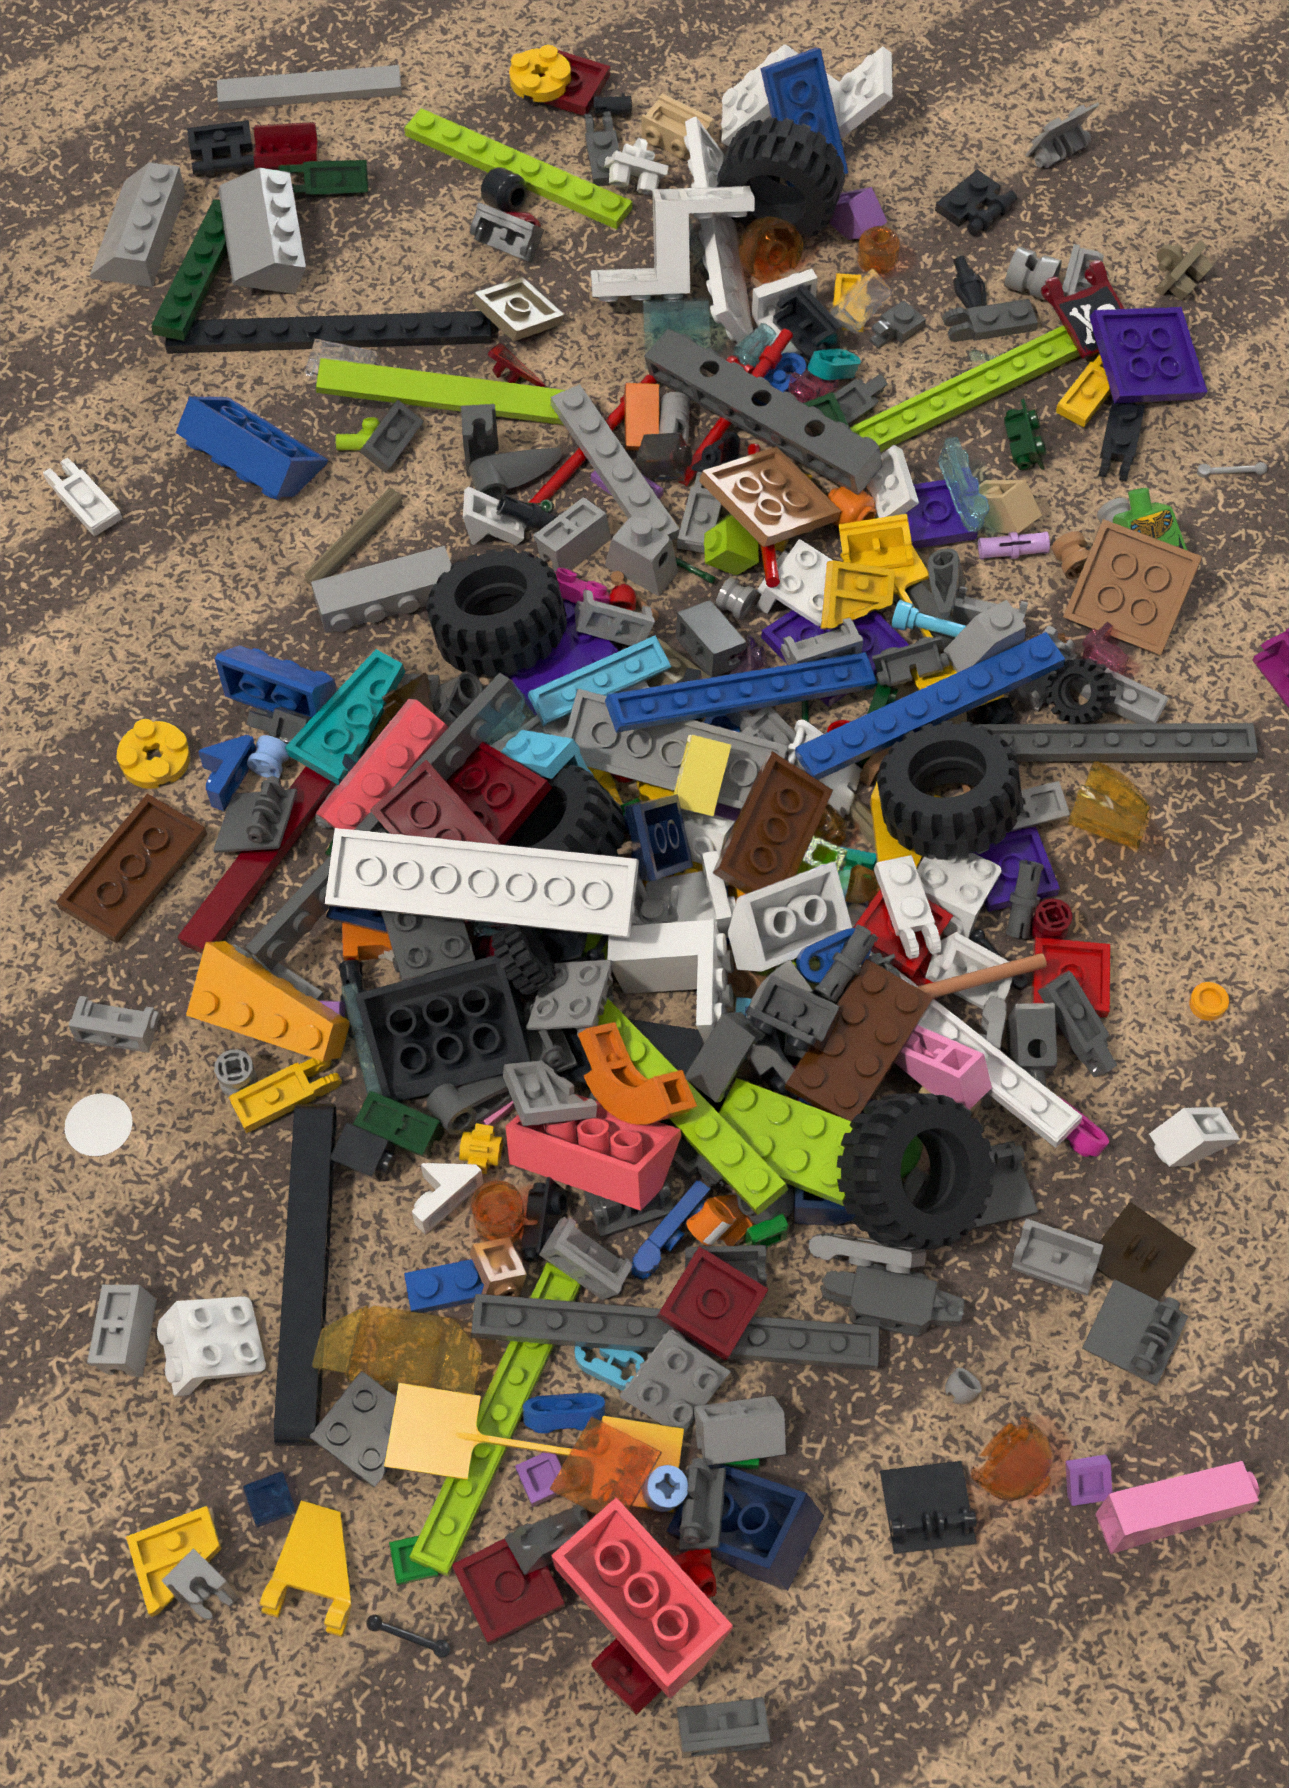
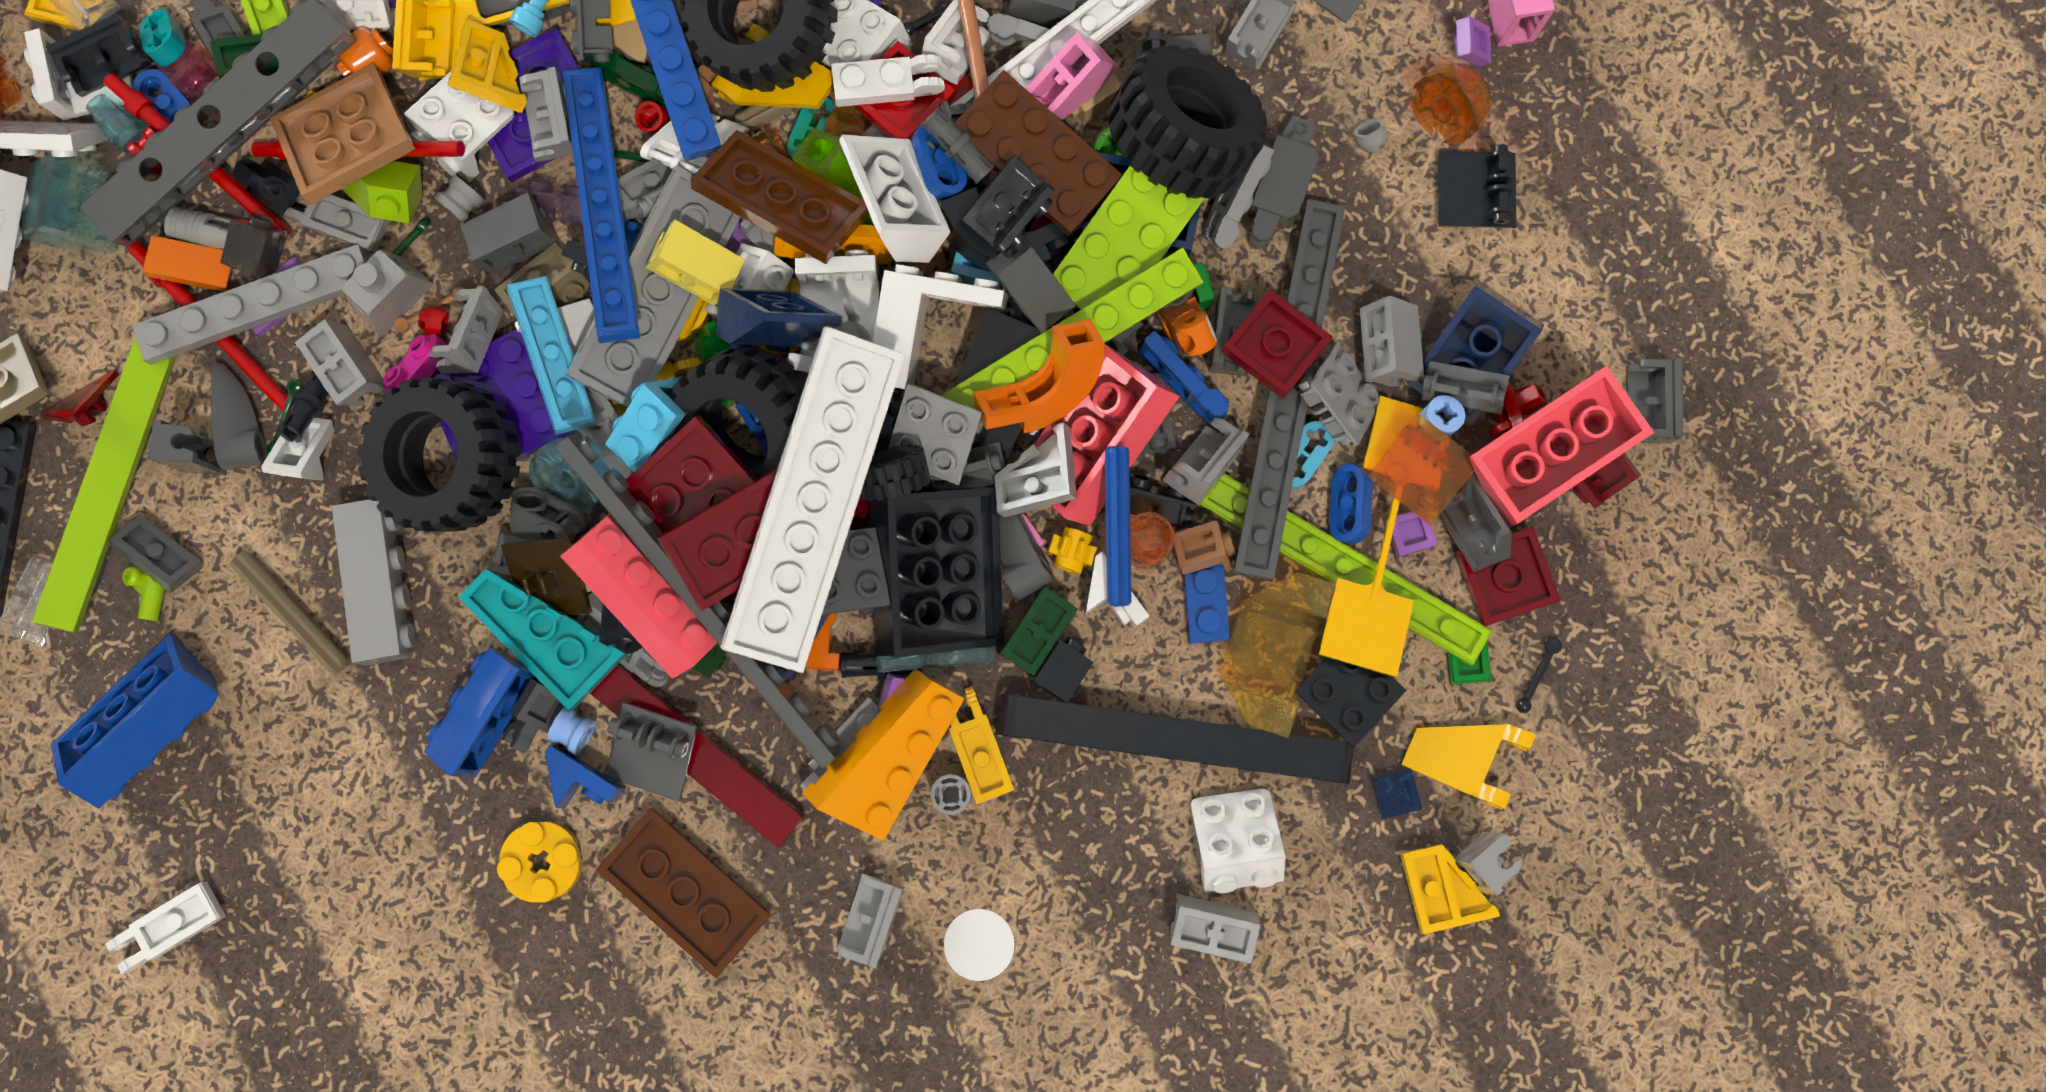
camera: 80 degrees left, 20 degrees up
(501, 1168) = (1118, 526): none -> blue axle

